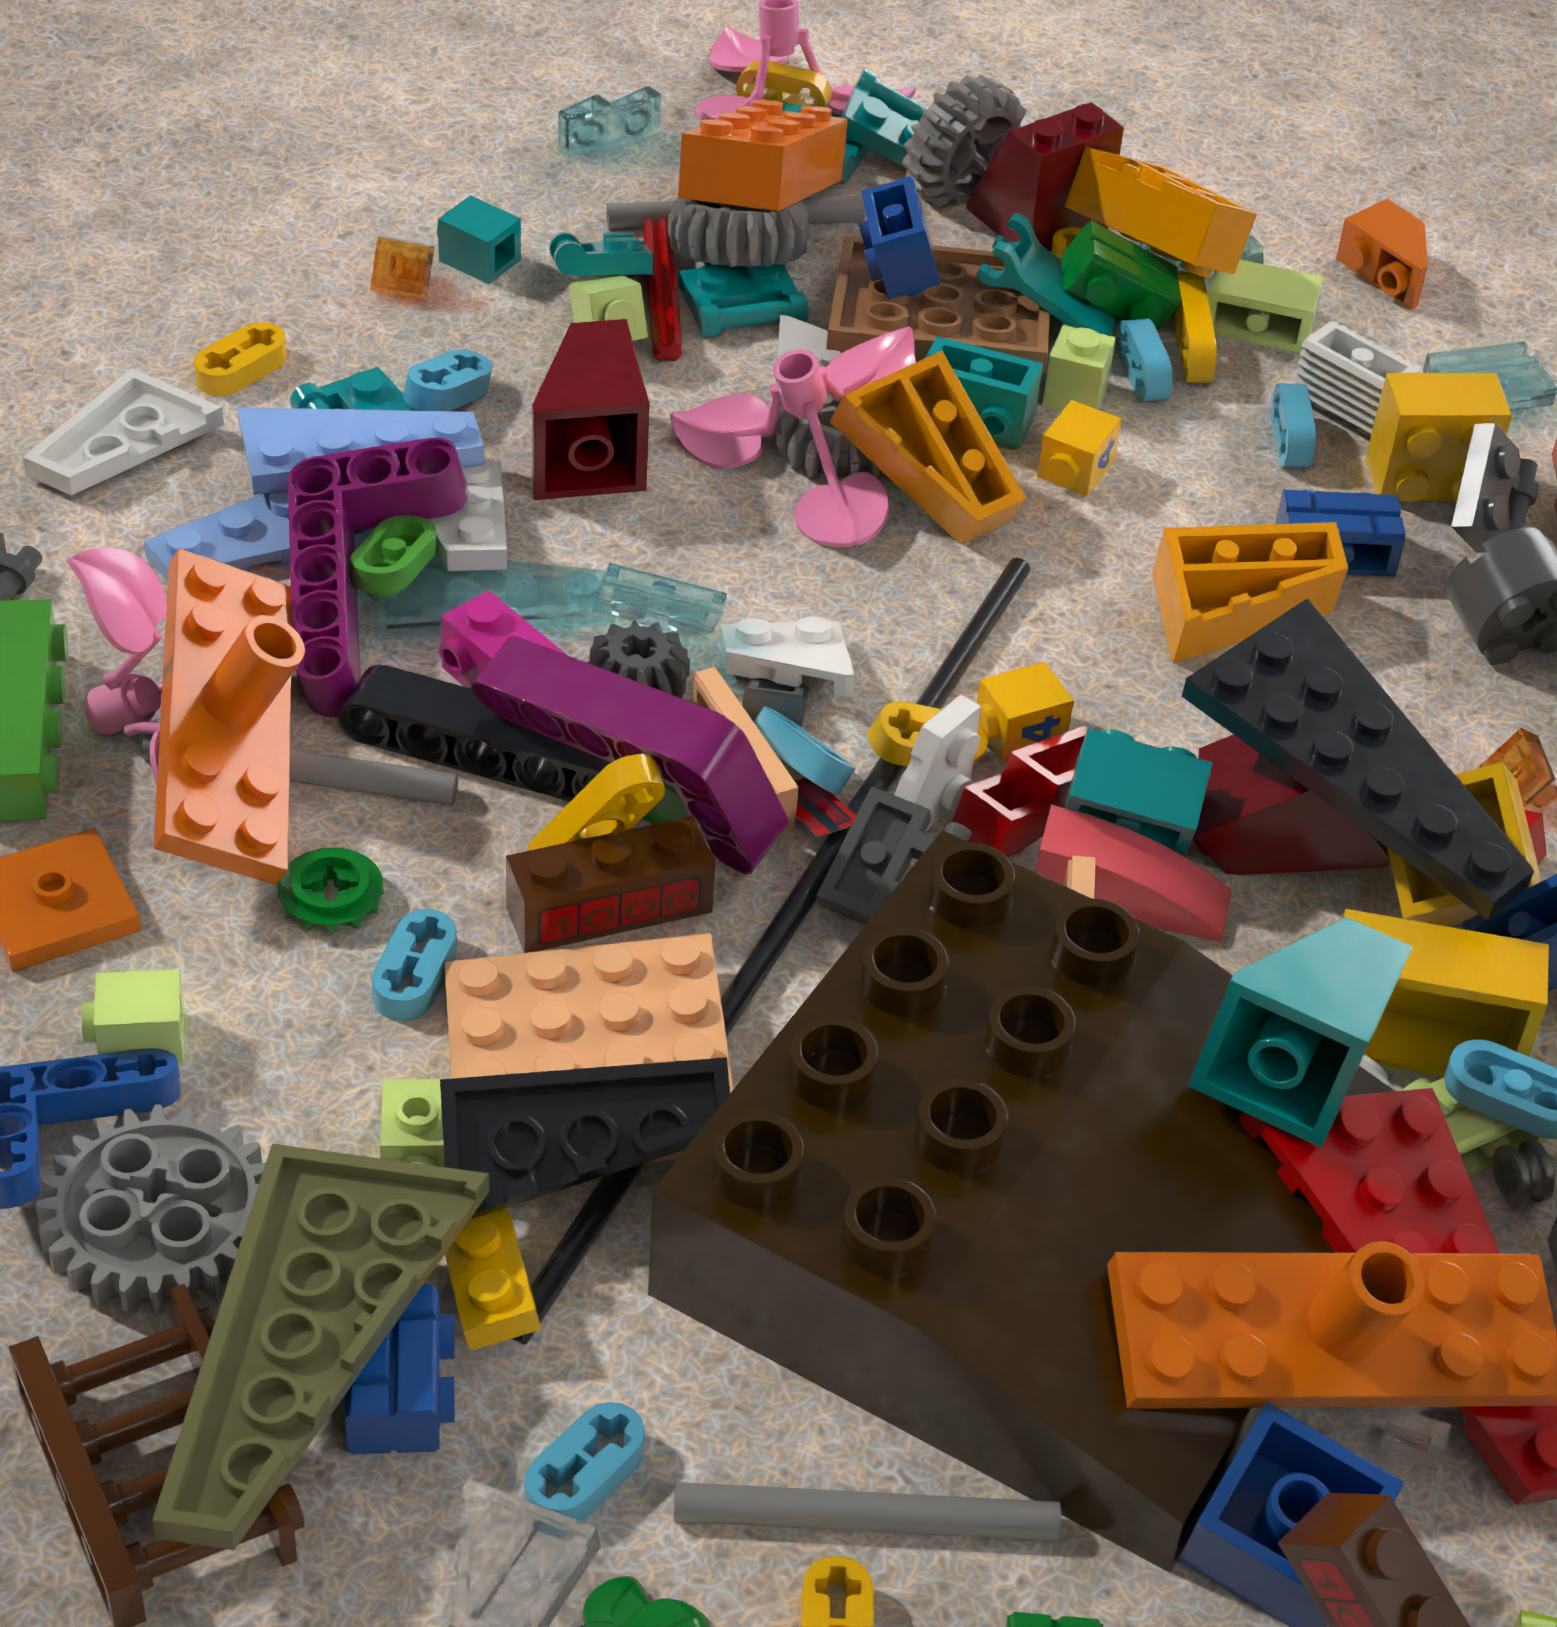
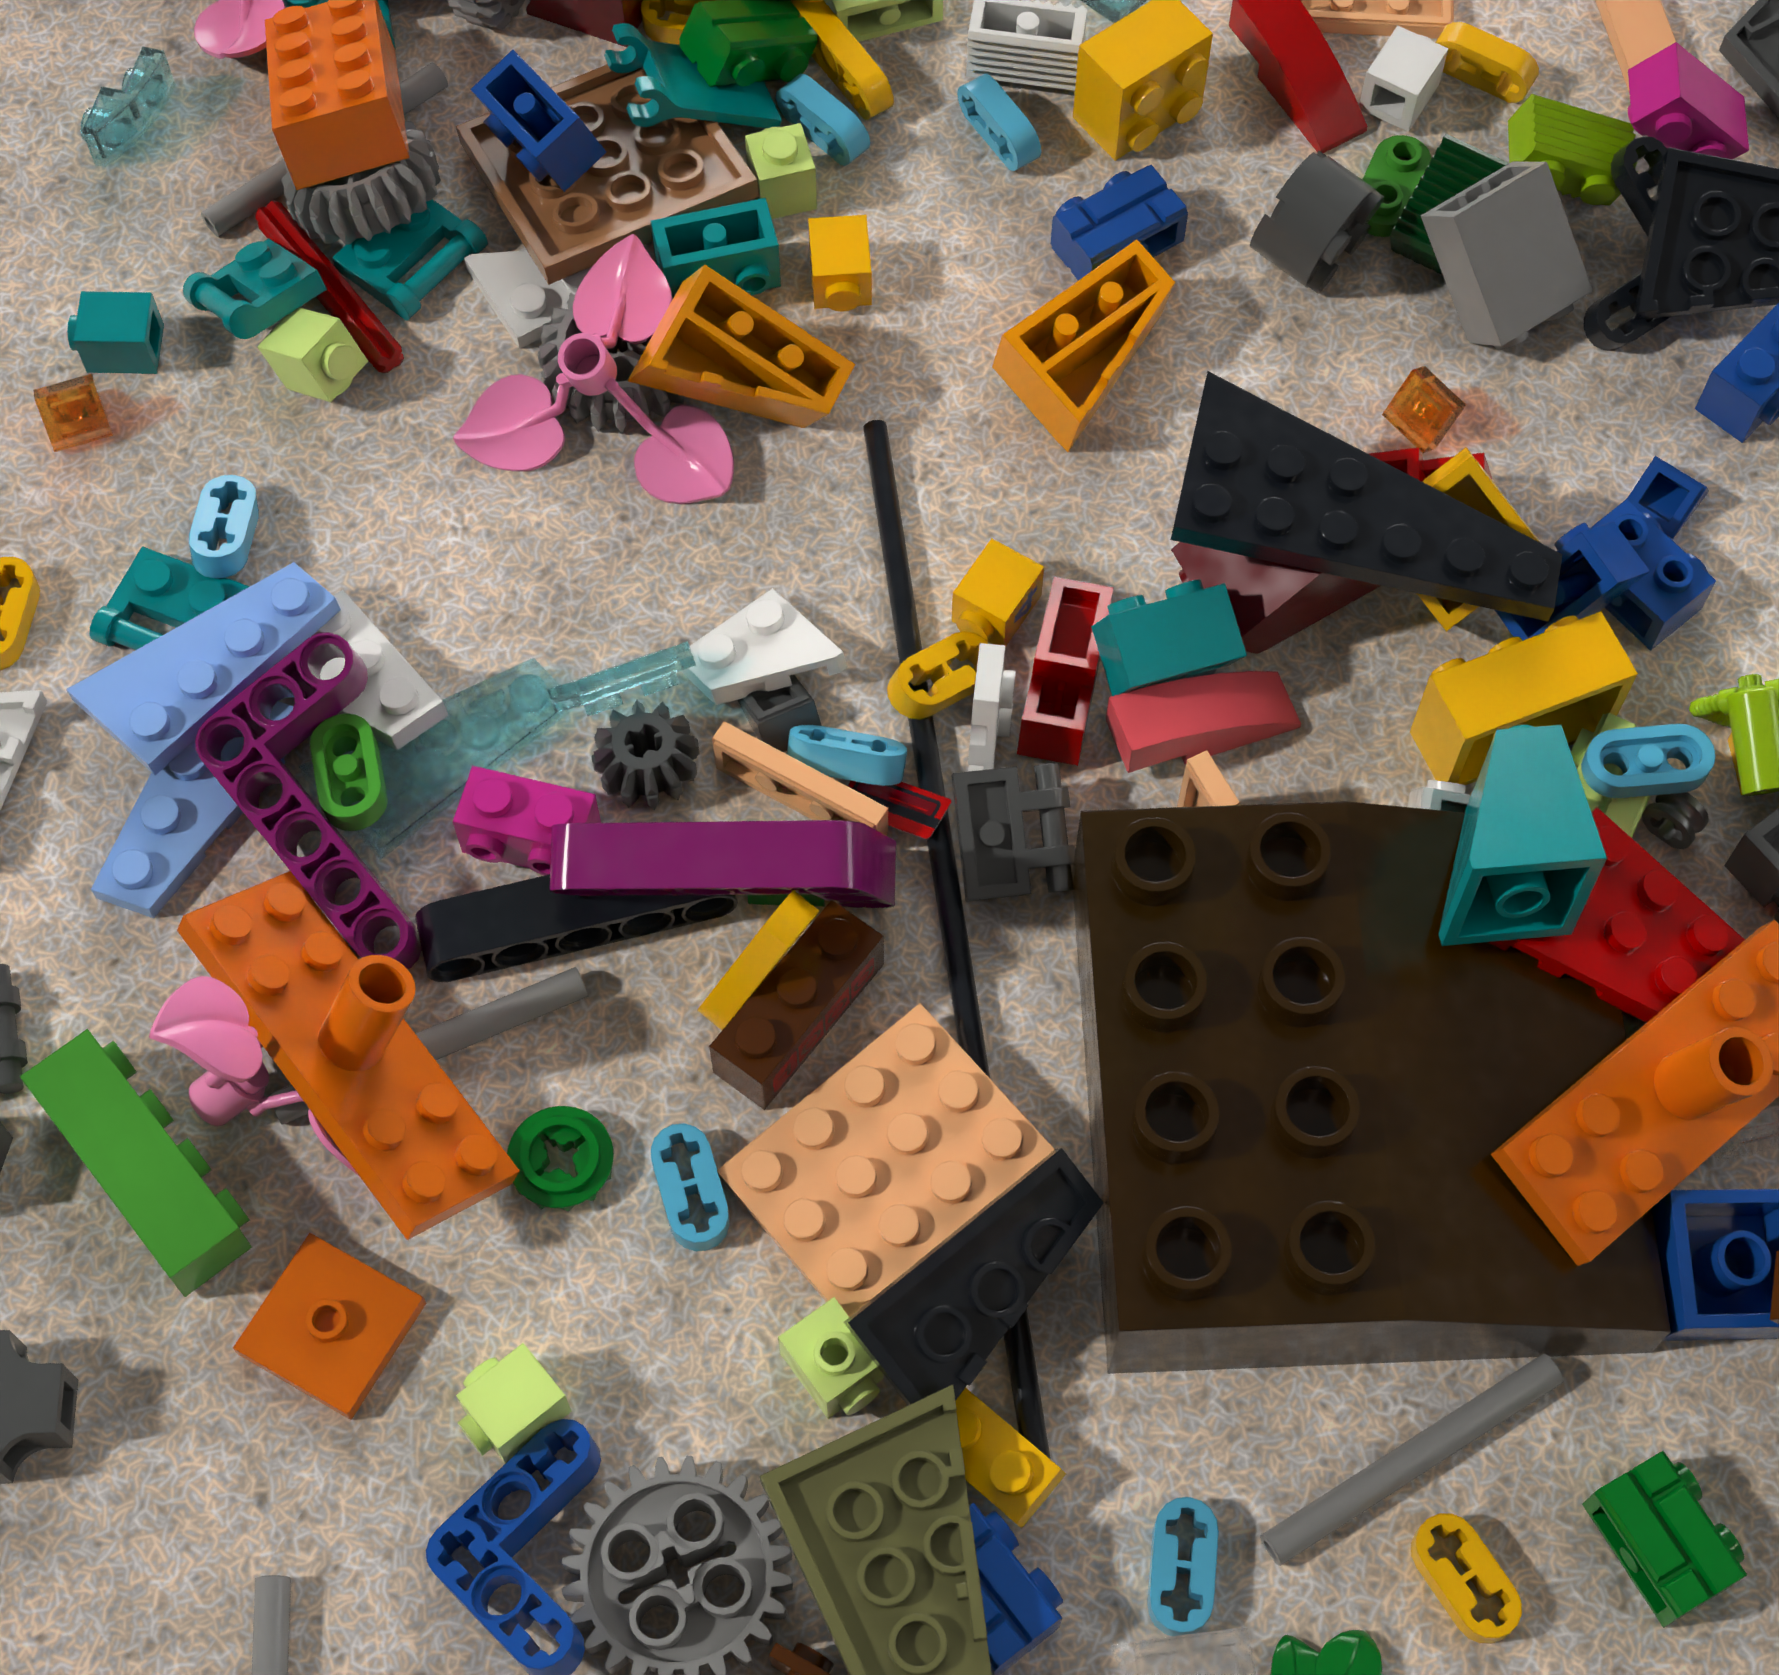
camera: 30 degrees left, 20 degrees up
(591, 416) = (409, 491): dark red slope -> none
(1493, 488) = (1232, 117): dark grey plate -> none

